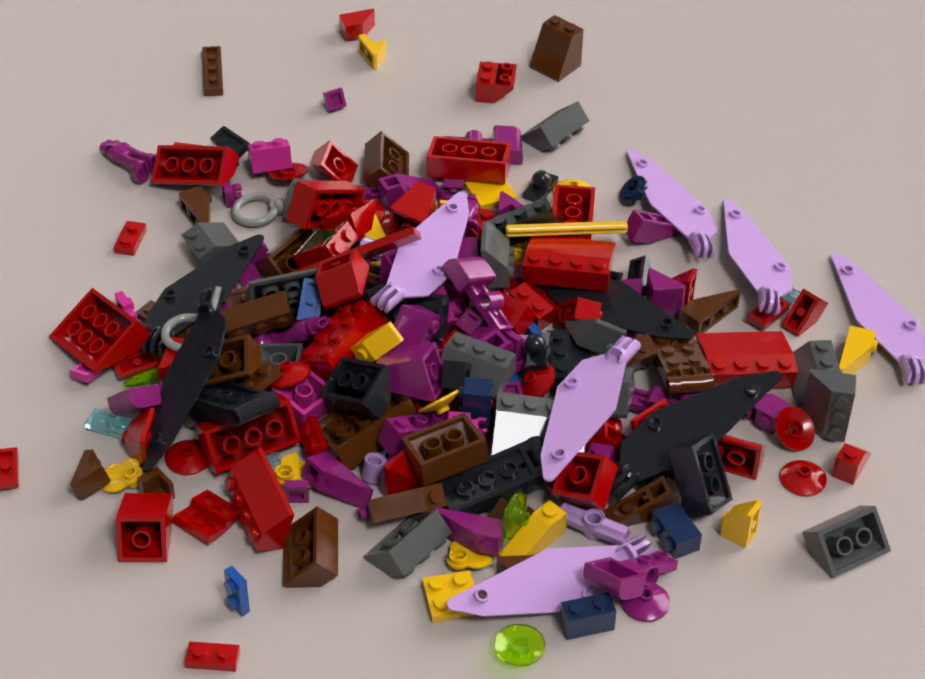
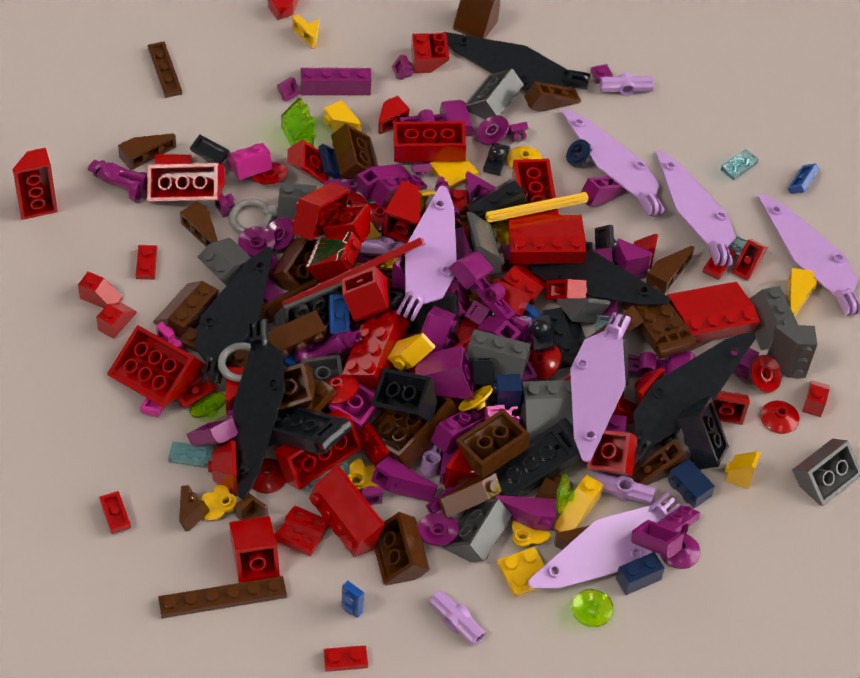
camera: 15 degrees left, 10 degrees up
(30, 147) = (35, 184): none -> red slope
(68, 257) = (98, 290): none -> red slope
(74, 284) = (114, 318): none -> red slope
(94, 571) = (222, 597): none -> reddish brown plate
(154, 283) = (187, 307): none -> reddish brown slope
(166, 133) = (143, 149): none -> reddish brown slope
(252, 226) = (256, 236): none -> magenta dish
(277, 228) = (282, 232): none -> magenta dish
(333, 126) = (298, 123): none -> clear neon green slope
(355, 168) = (329, 161): none -> dark blue tile
(355, 632) = (457, 617): none -> lavender piece
(361, 535) = (437, 529): none -> magenta dish
(378, 123) = (339, 114): none -> yellow slope
(387, 97) = (335, 81): none -> magenta slope
(438, 126) = (391, 112): none -> red slope
(463, 93) = (402, 67): none -> magenta tile
(543, 158) = (492, 130): none -> magenta dish
(571, 160) = (518, 128): none -> magenta tile
(600, 105) = (527, 63): none -> black wing
(615, 135) = (548, 96): none -> reddish brown slope
(681, 122) = (600, 71): none -> magenta plate
(705, 133) = (626, 84): none -> lavender piece
(815, 221) = (739, 164): none -> clear light blue plate
(886, 243) = (803, 178): none -> blue plate

